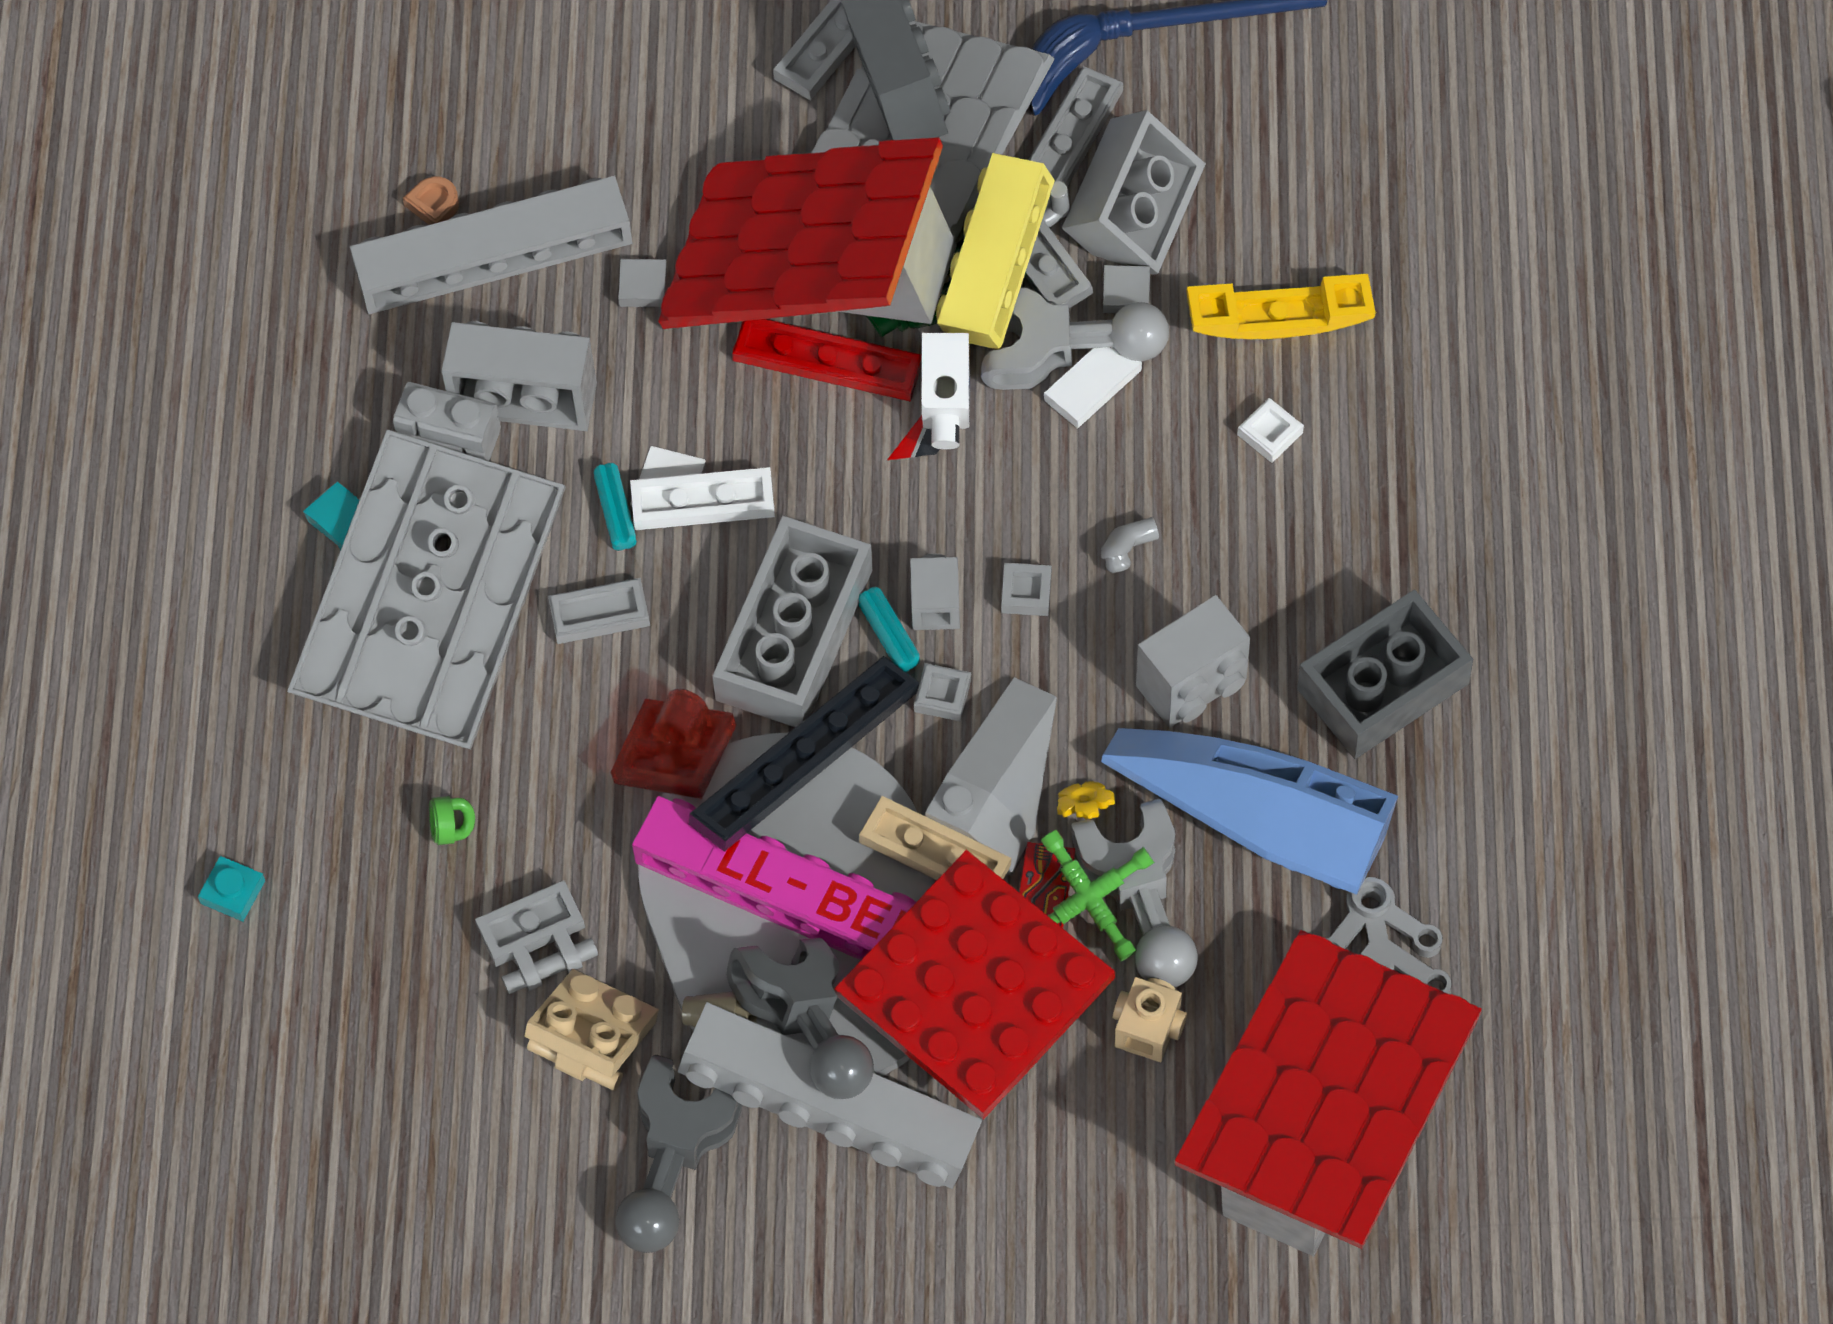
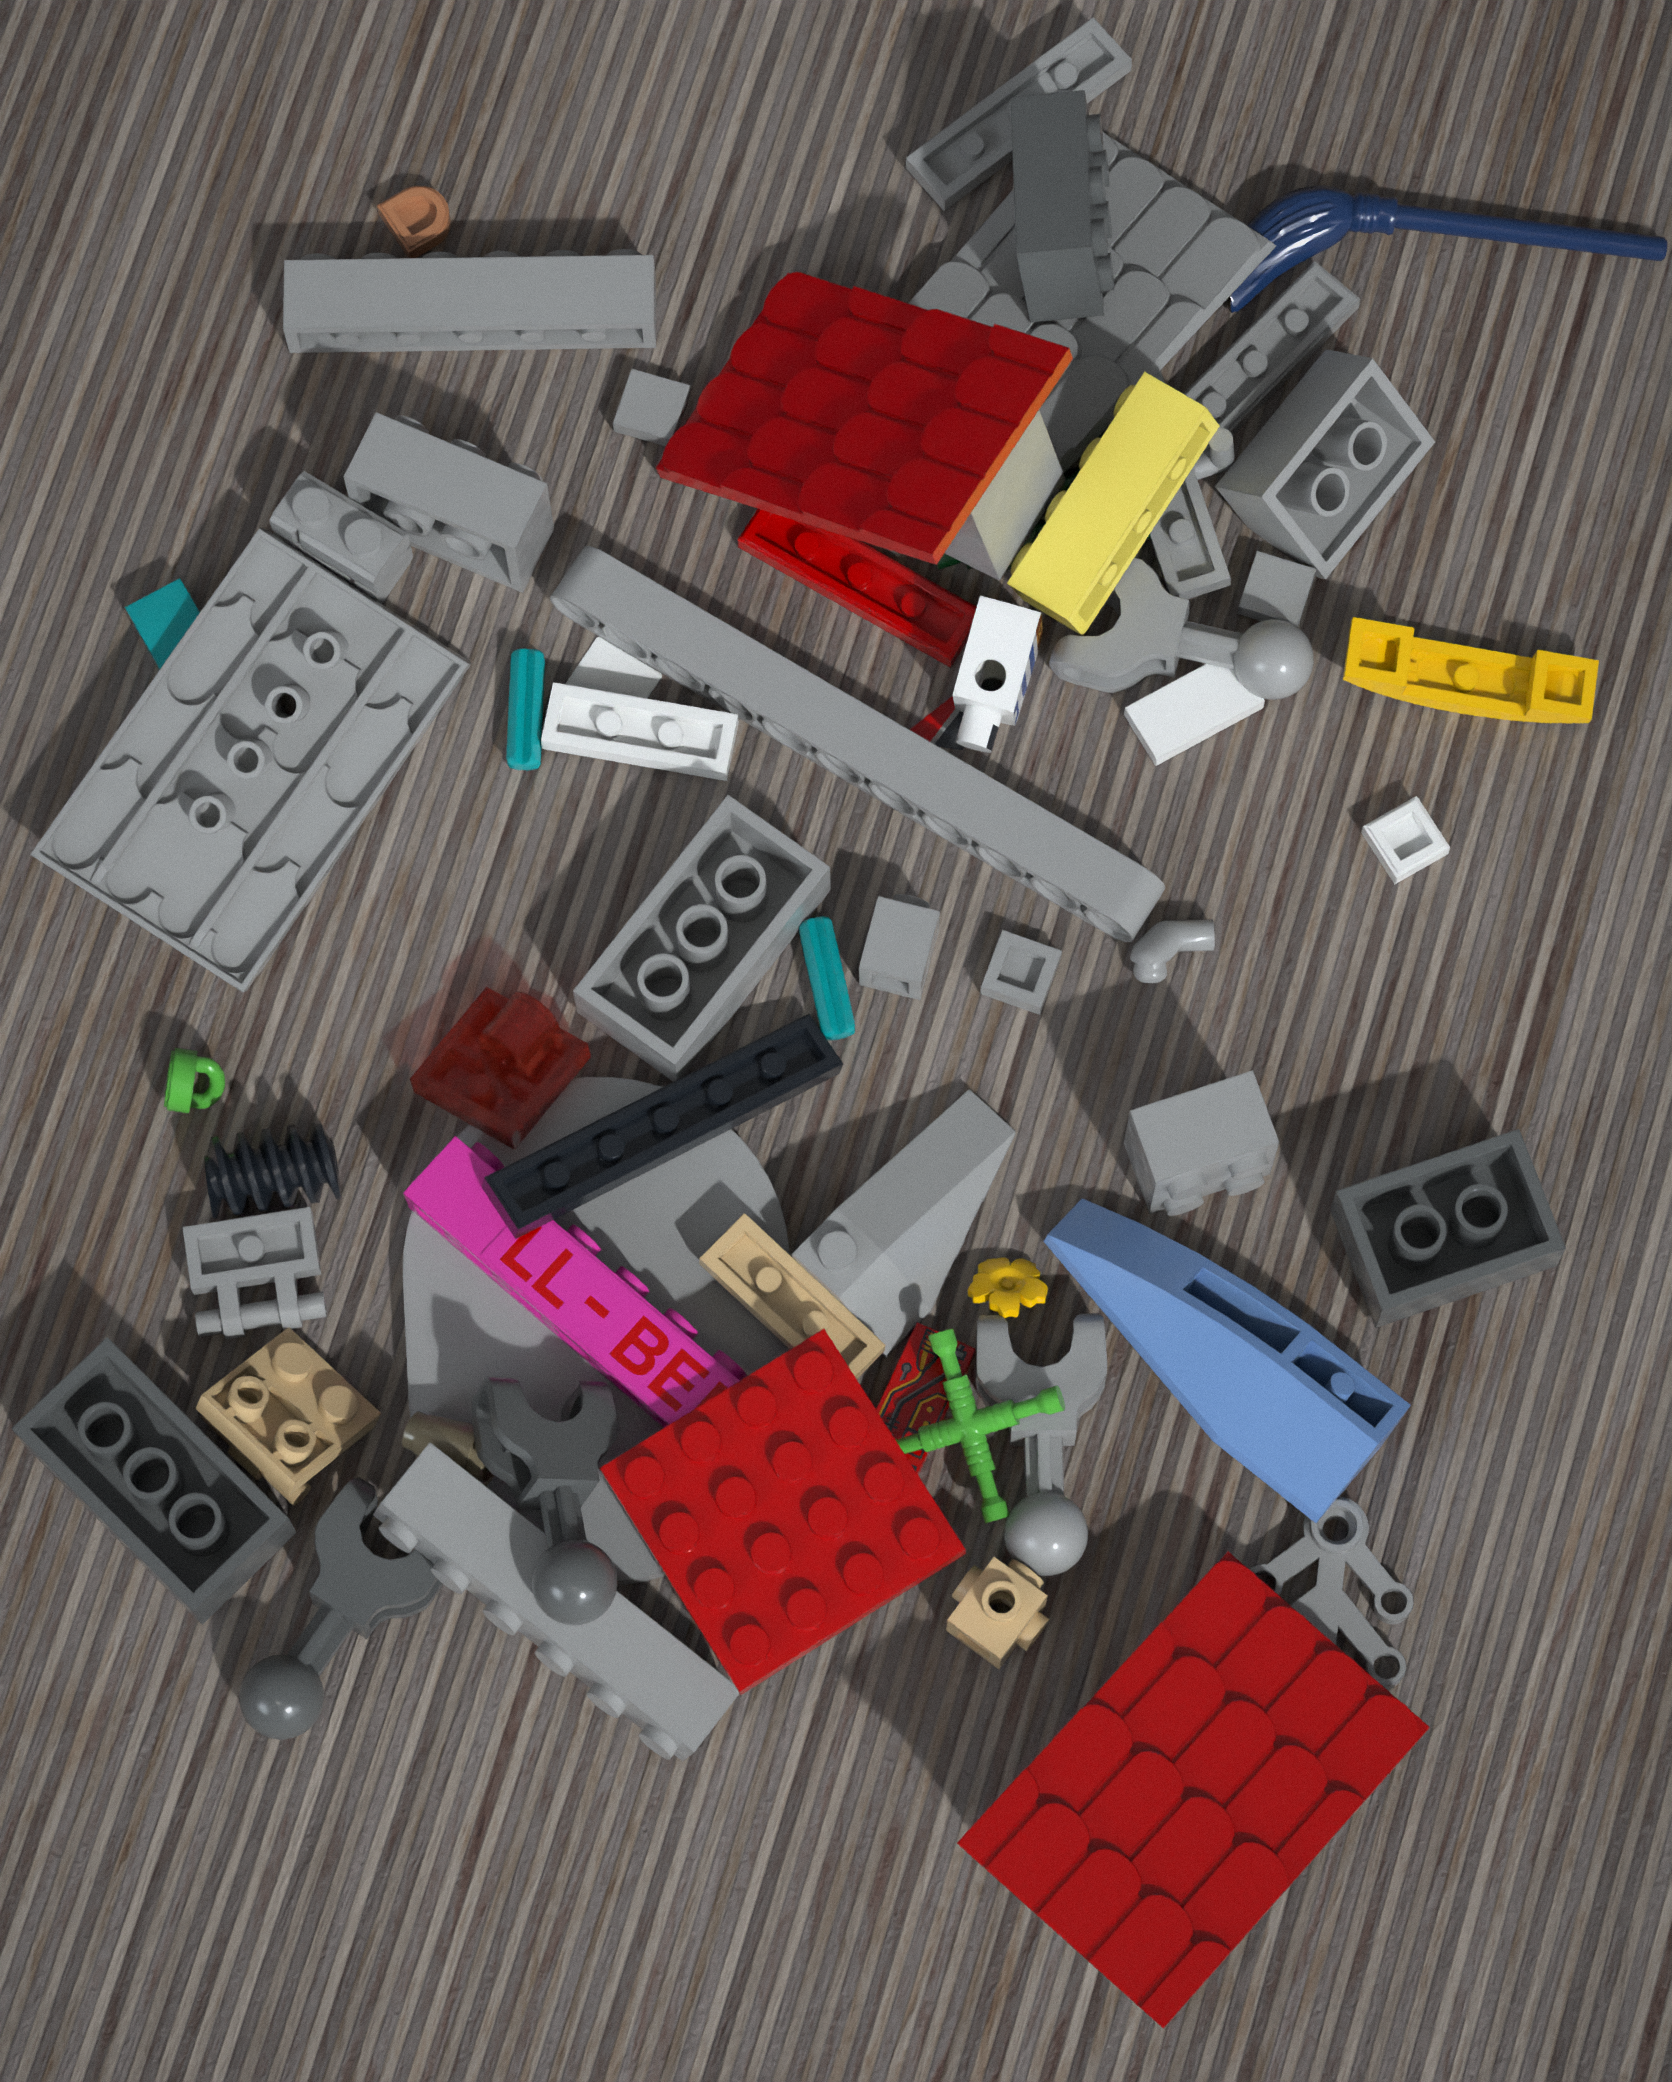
camera: 15 degrees right, 10 degrees up
(508, 1095) = (154, 1480): none -> dark grey brick
(528, 861) = (271, 1169): none -> black piece
(599, 610) = (464, 846): light grey tile -> none
(862, 465) = (858, 744): none -> light grey beam
(942, 692) = (871, 1083): light grey tile -> none

